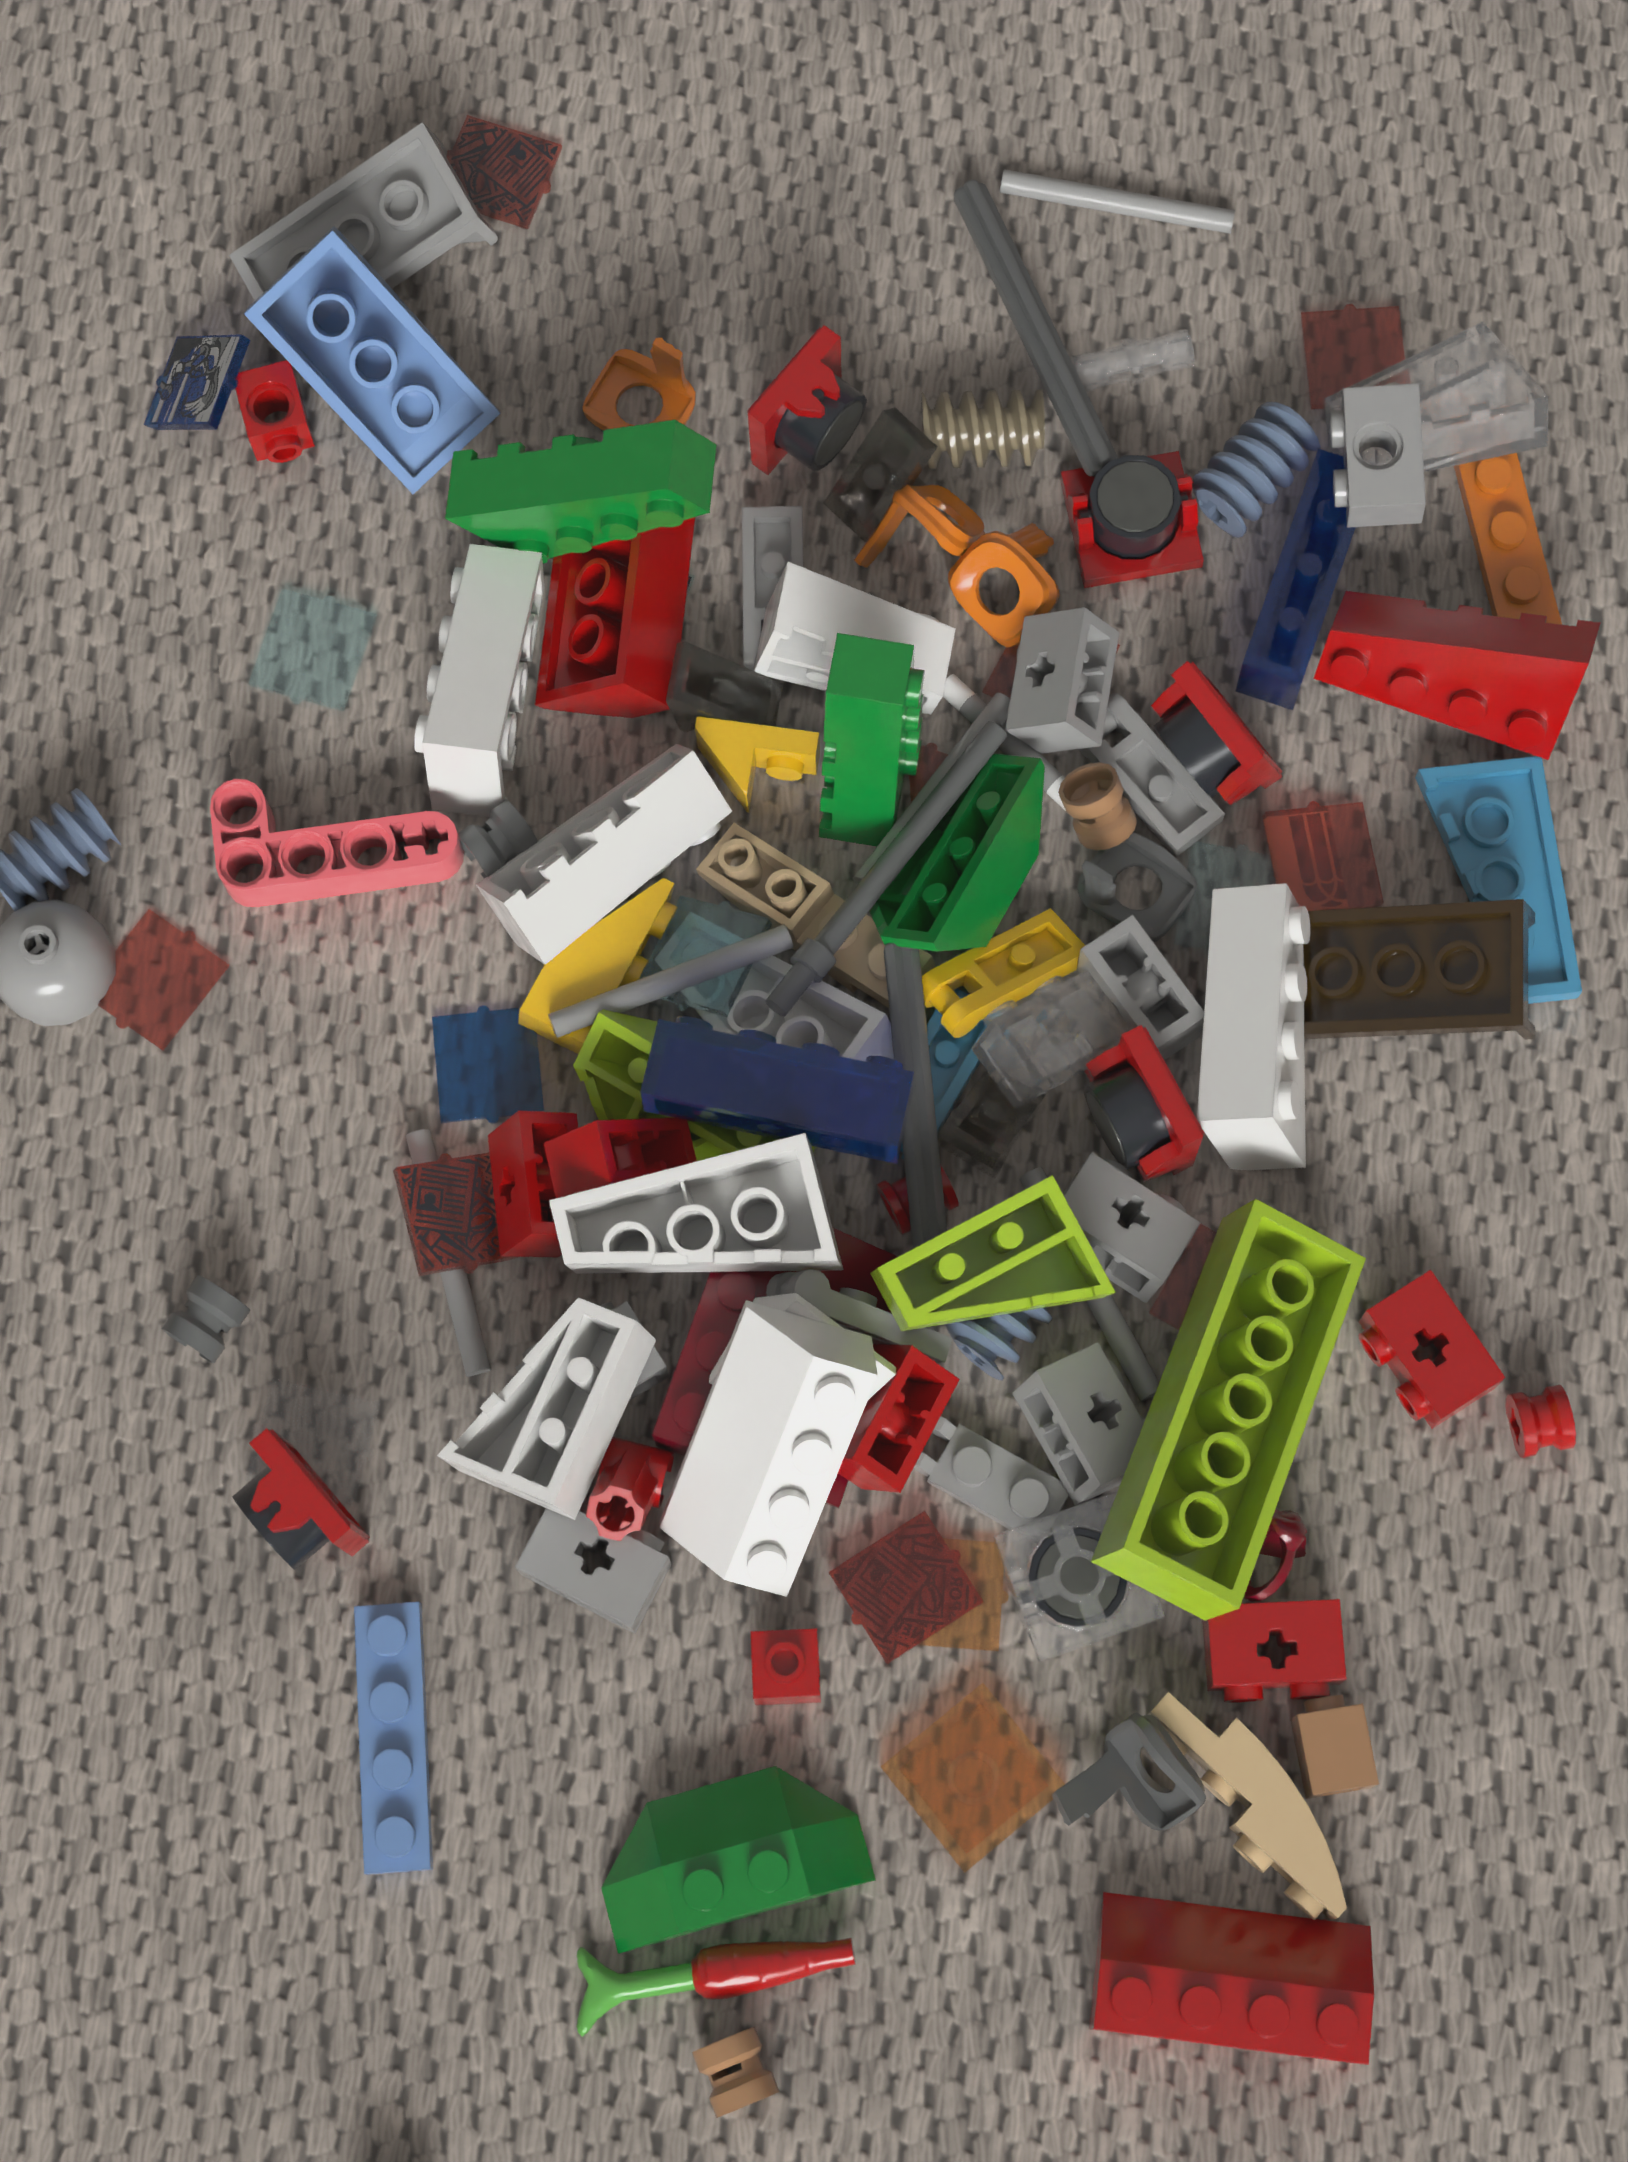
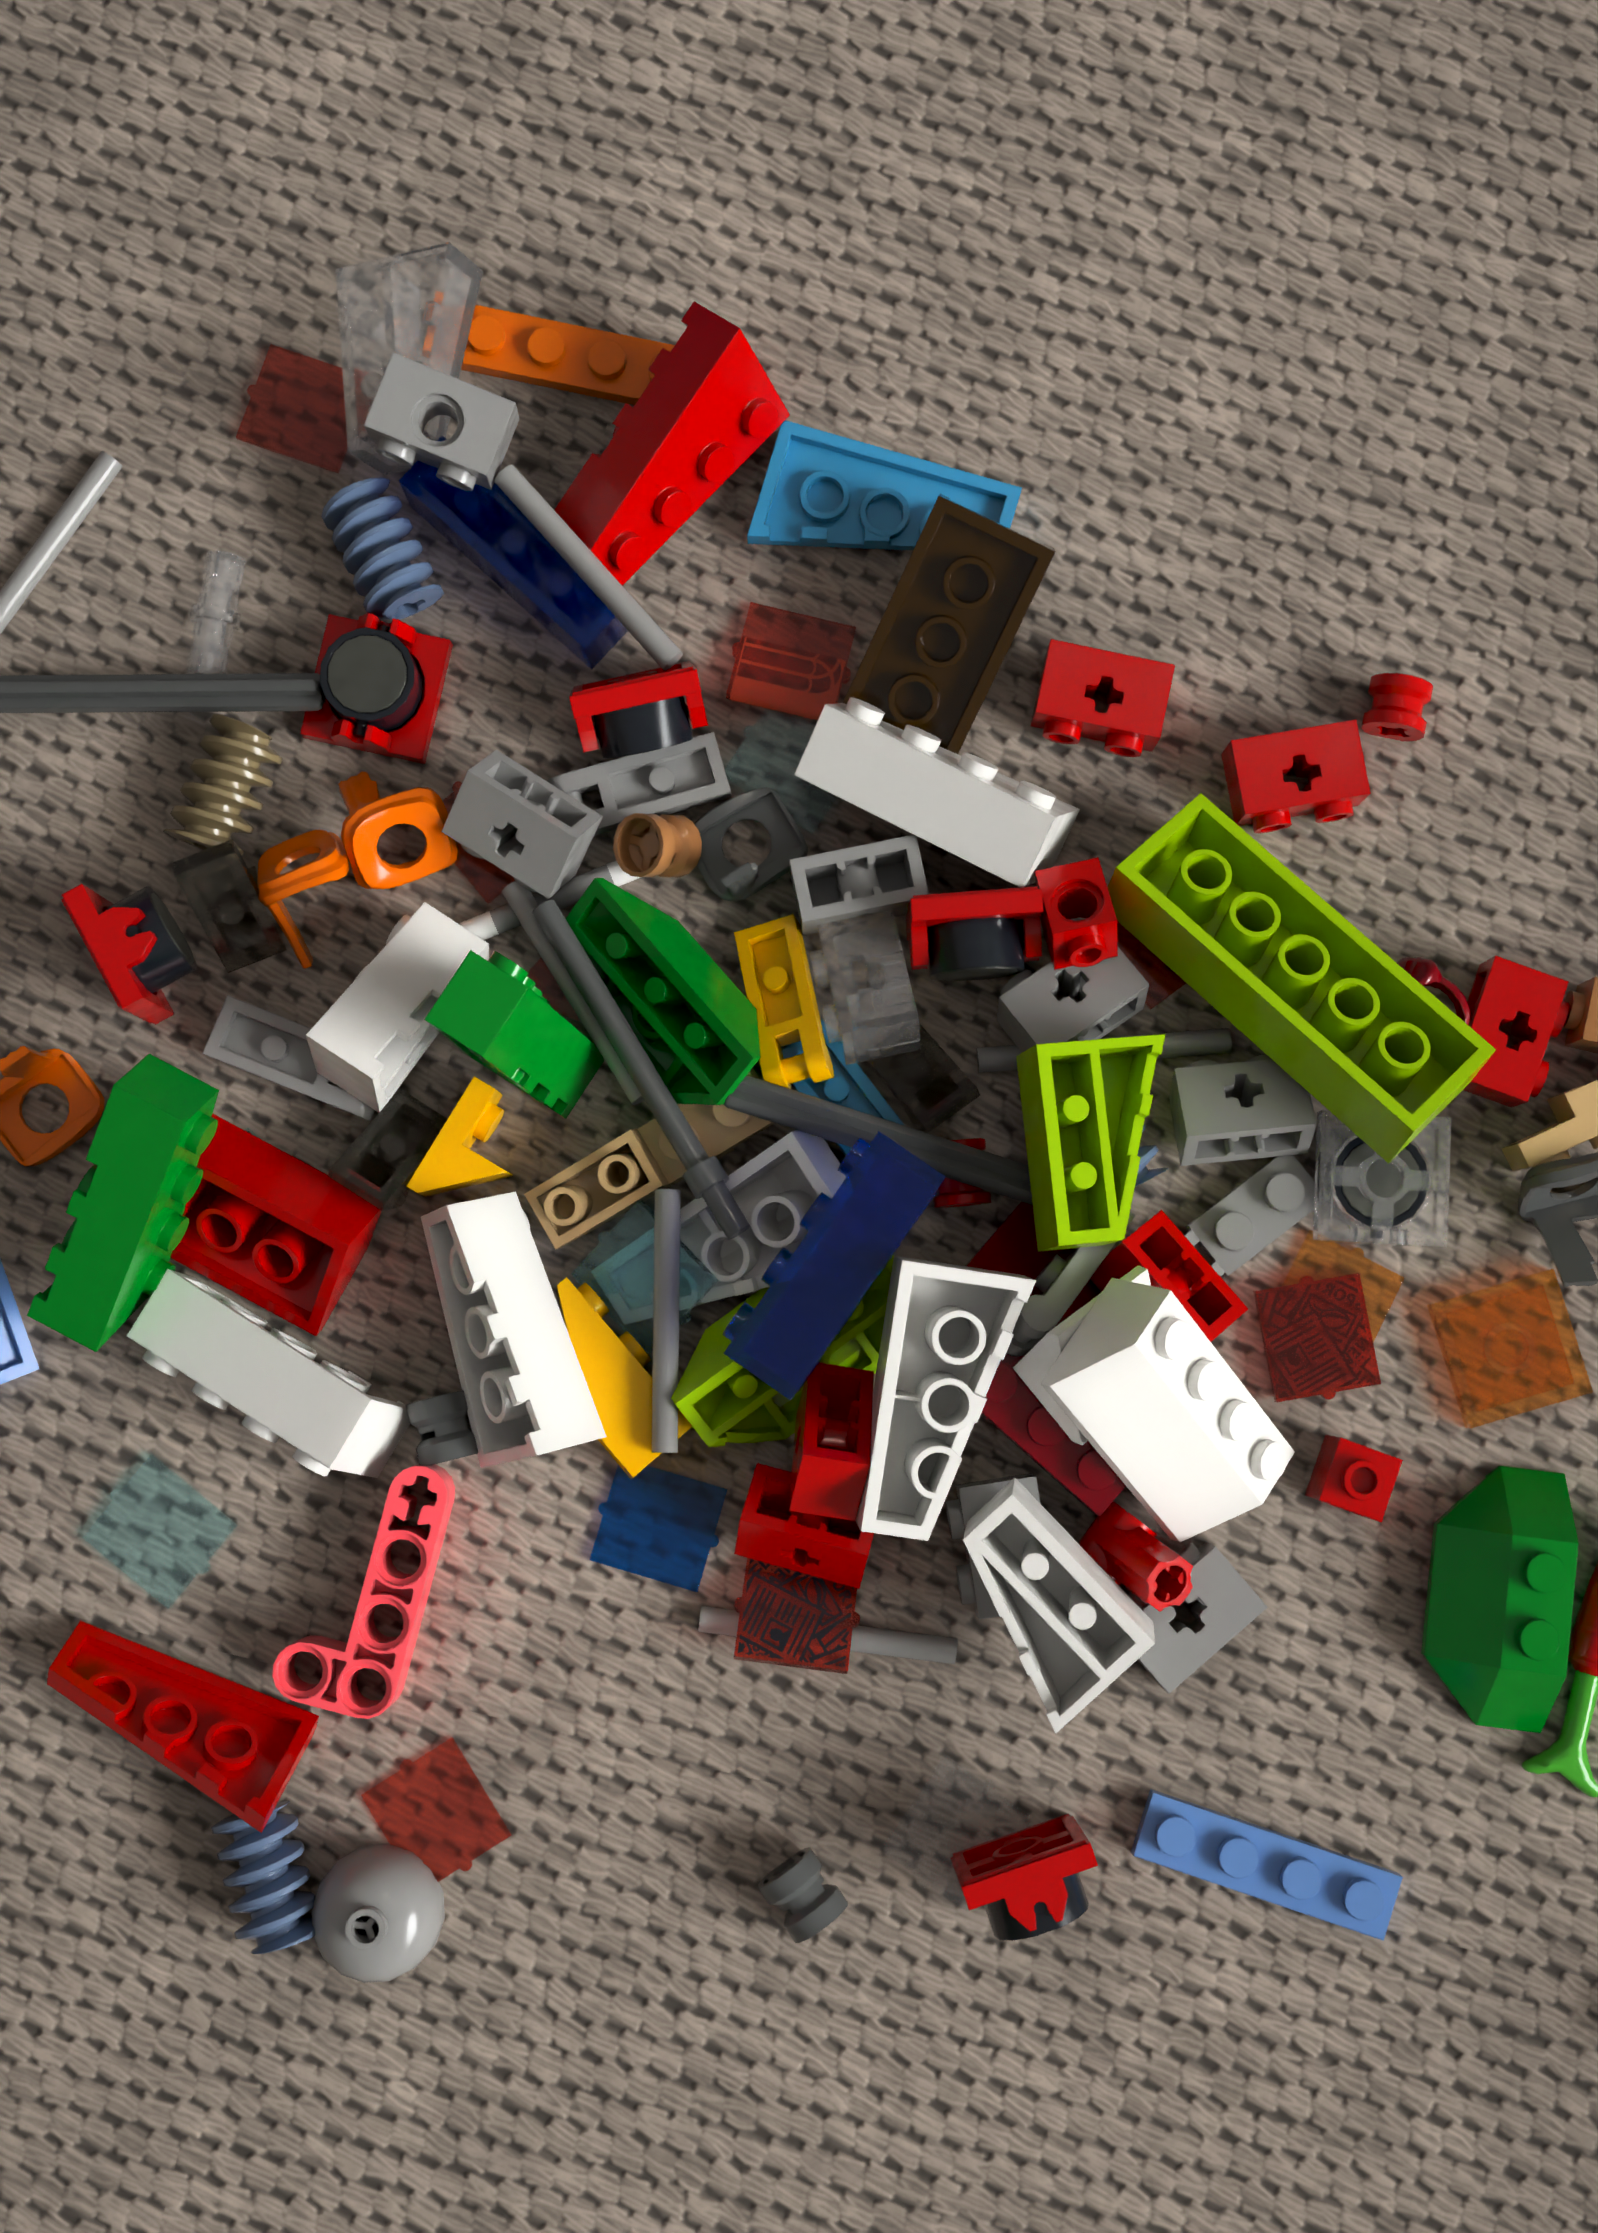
camera: 70 degrees left, 10 degrees up
(159, 739) = (195, 1723): none -> red wing
(1198, 1186) = (1071, 893): none -> red brick
(1315, 634) = (588, 567): none -> light grey bar
(1429, 1109) = (1134, 690): none -> red brick

